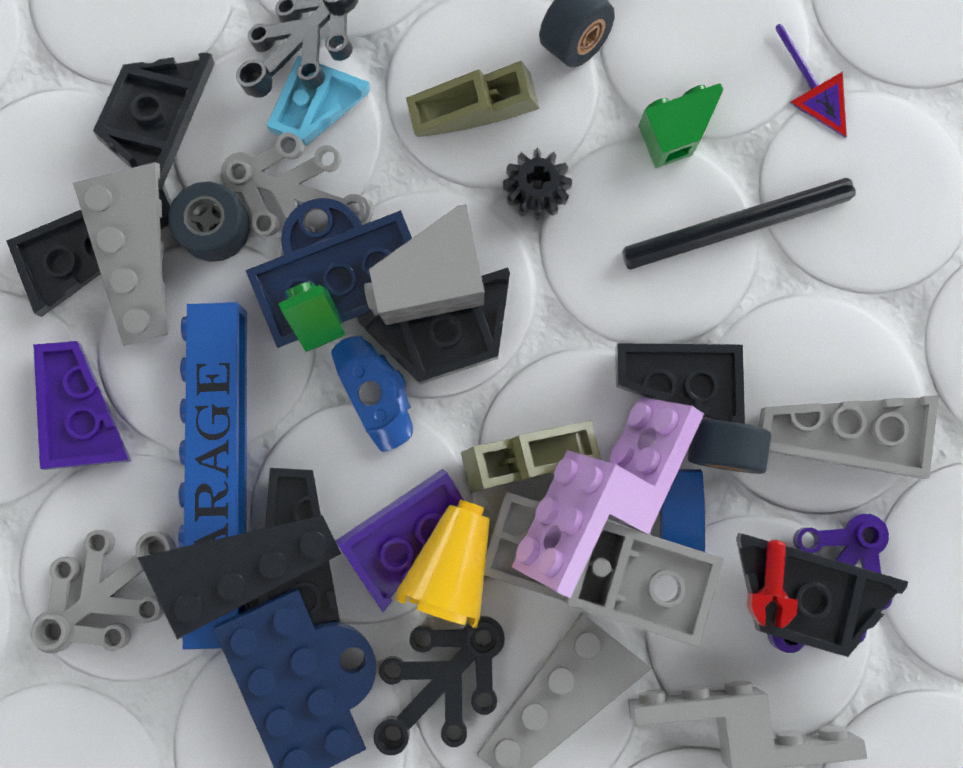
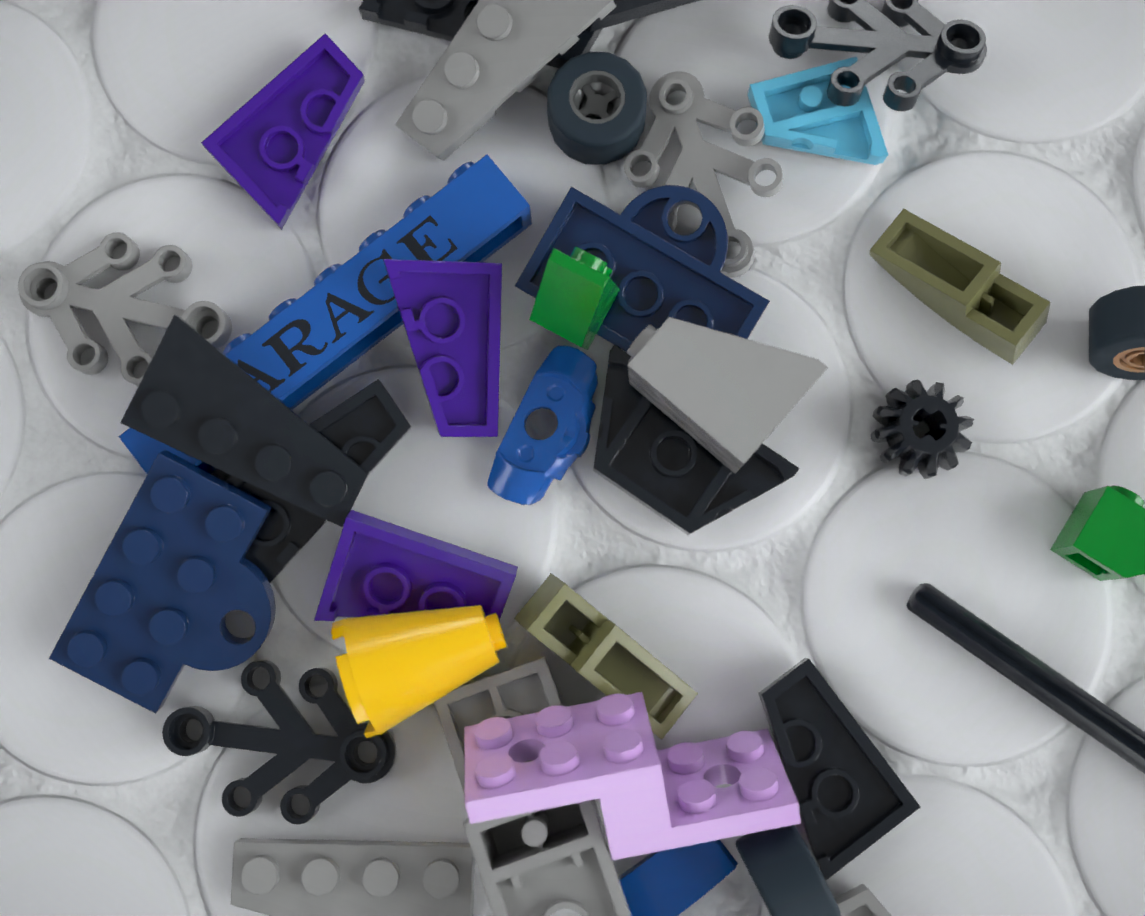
camera: 55 degrees right, 0 degrees up
(281, 404) = (455, 338): none -> dark purple wing

